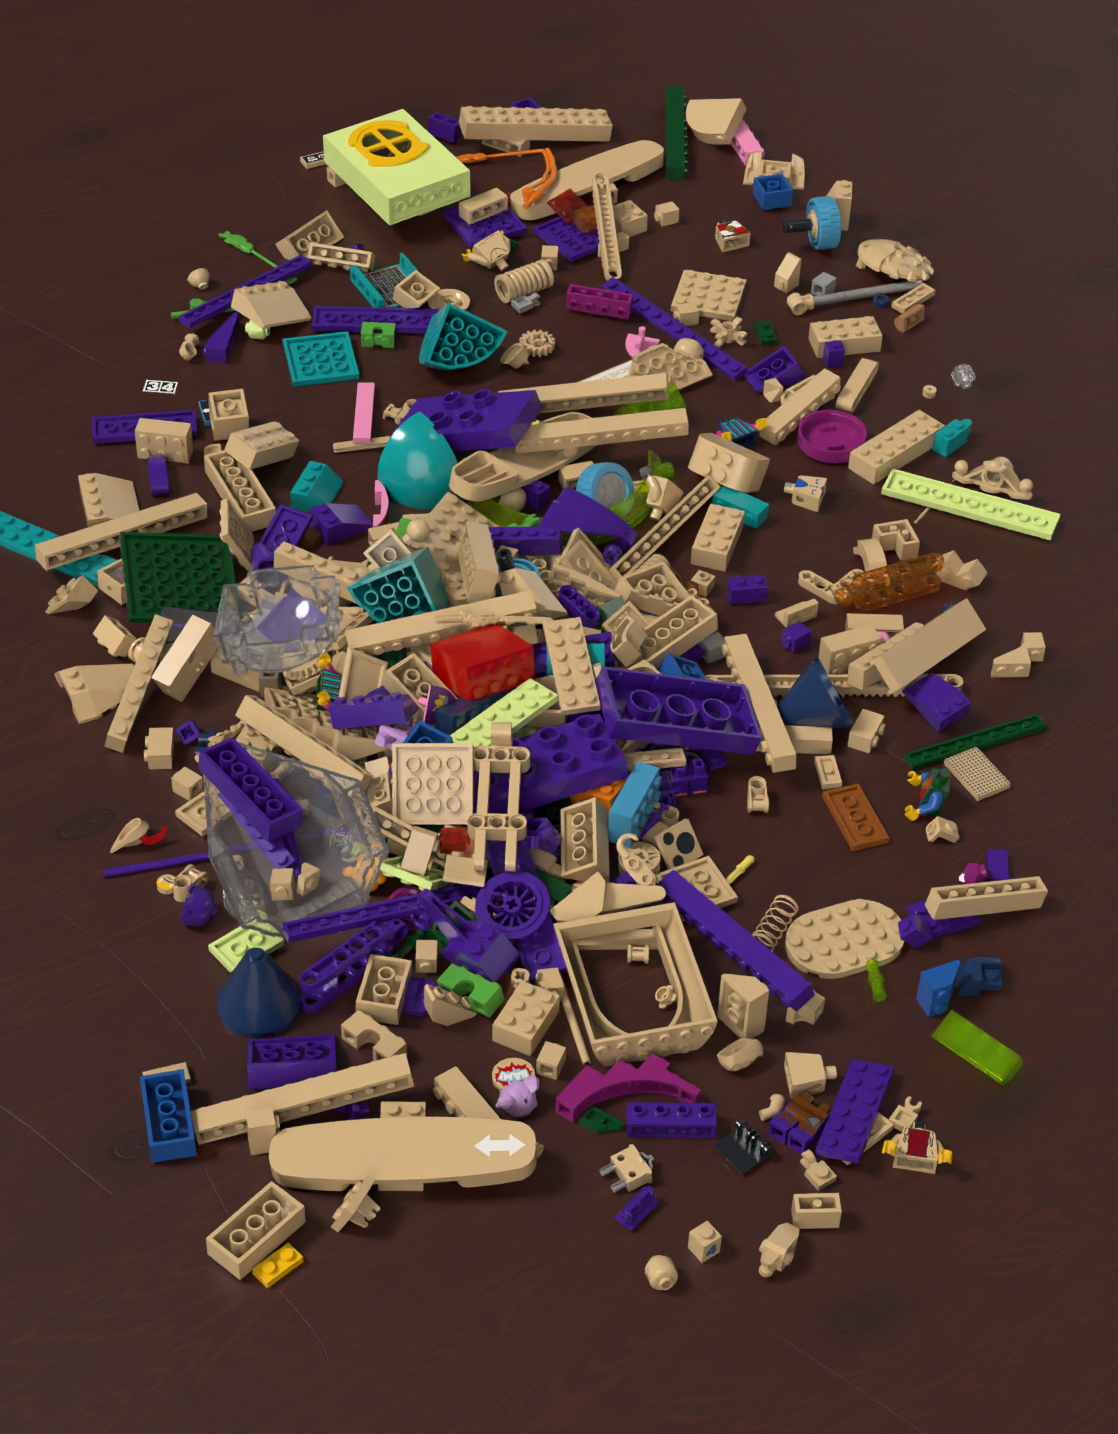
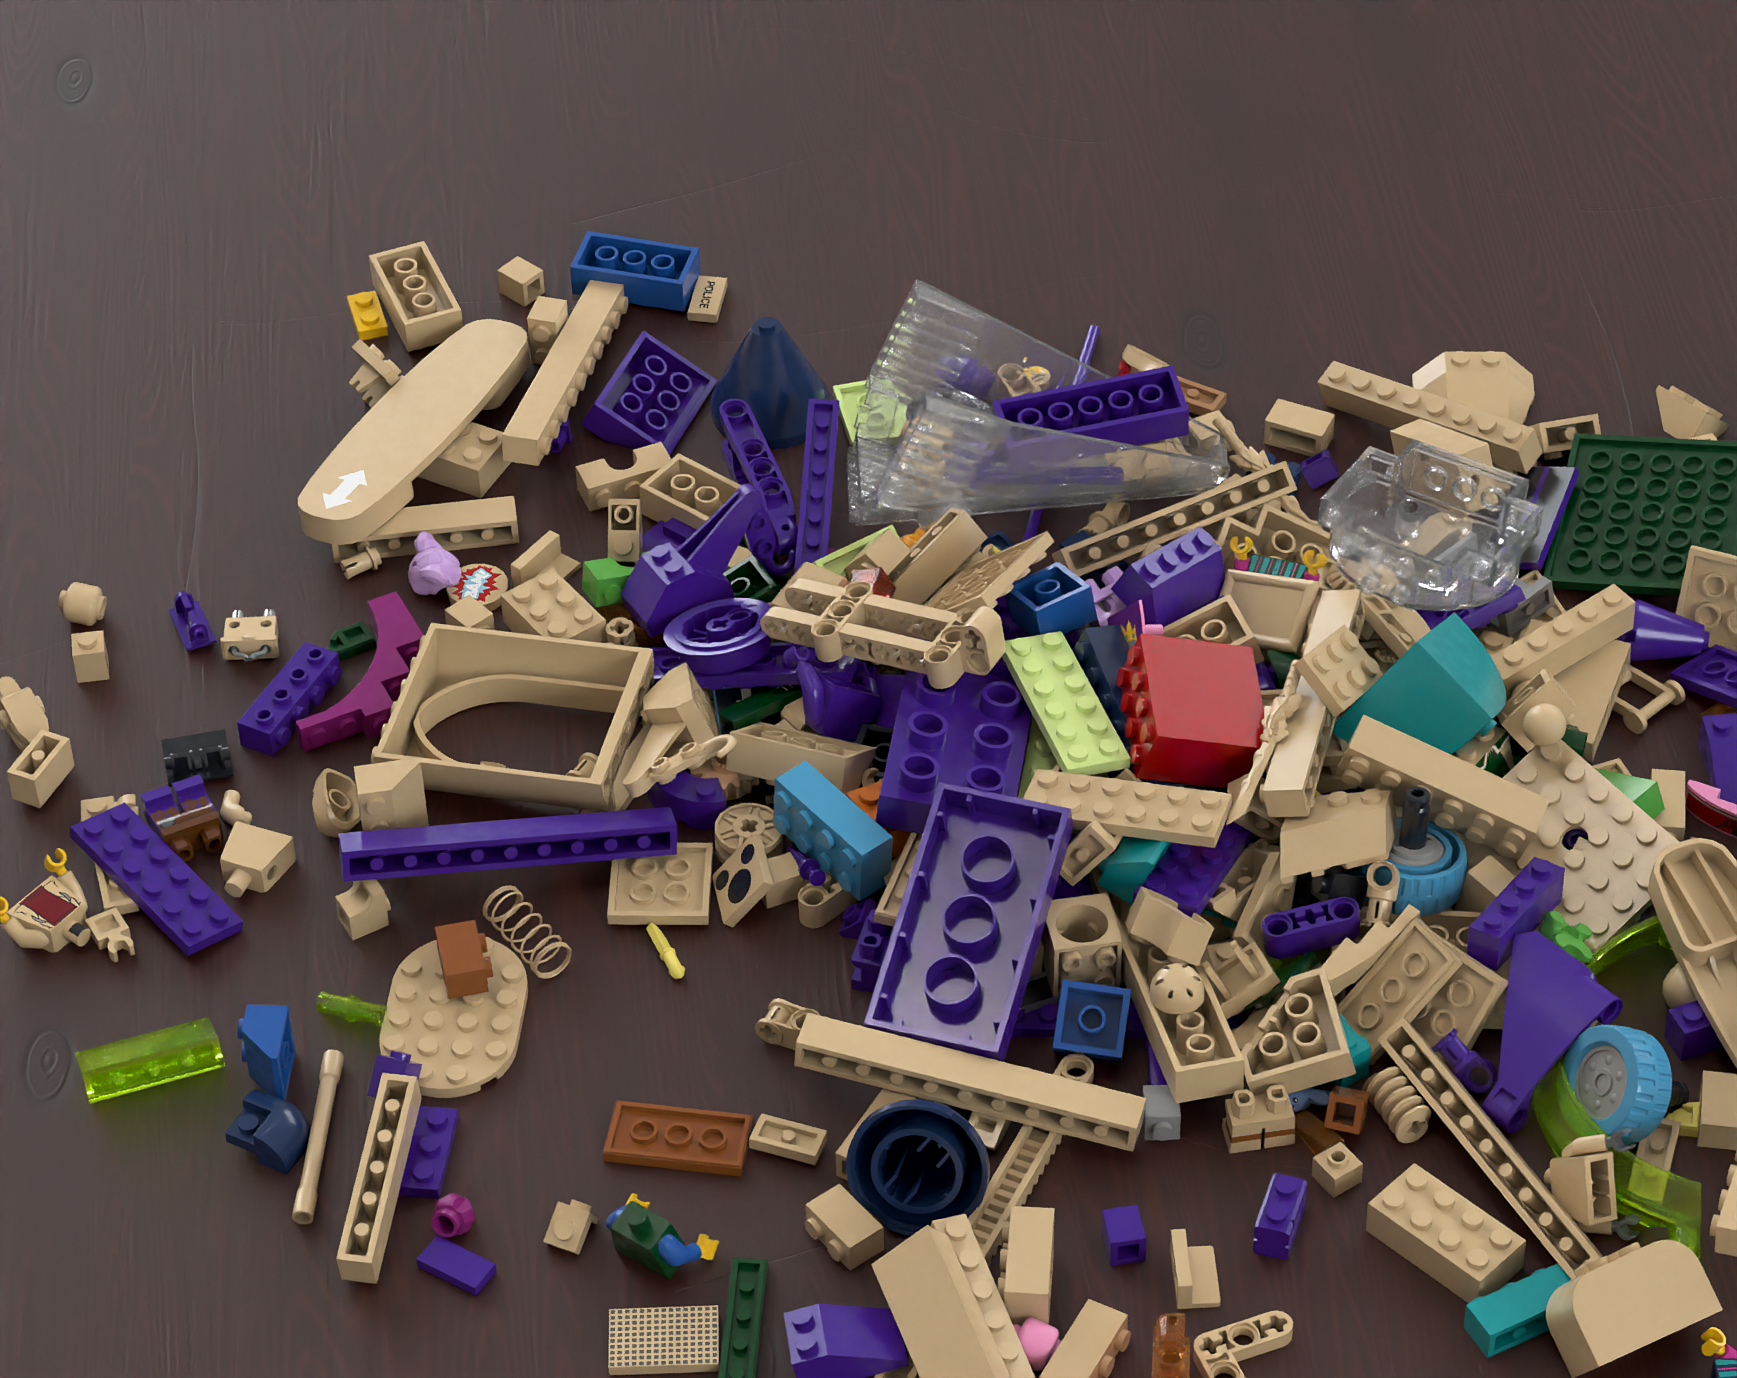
camera: 120 degrees right, 0 degrees up
(152, 804) = (1201, 398): none -> medium nougat plate
(203, 1183) = (521, 281): none -> tan brick
(425, 607) = (1339, 670): none -> tan plate
(477, 1050) = (542, 557): none -> tan panel
(549, 580) = (1381, 896): none -> tan connector
(663, 636) = (1177, 981): none -> tan helmet
(820, 932) = (462, 959): none -> dark orange brick
(1004, 943) = (307, 1193): none -> tan piece

